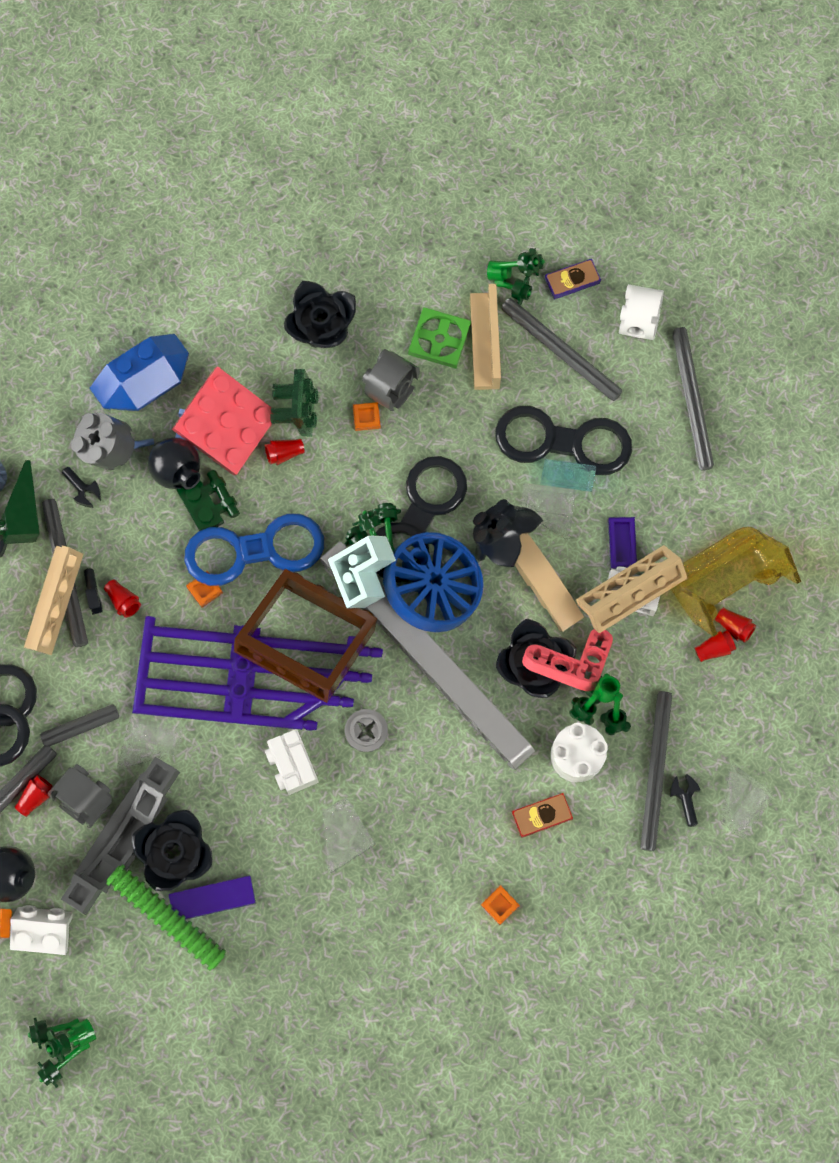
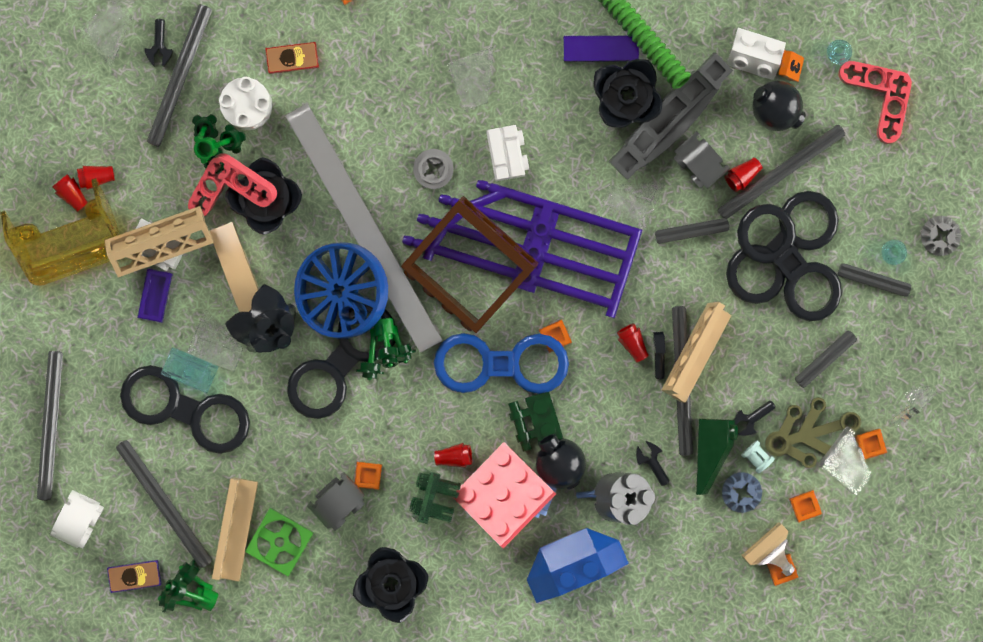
camera: 170 degrees left, 15 degrees up
(357, 568) = (409, 309): light aqua brick -> none

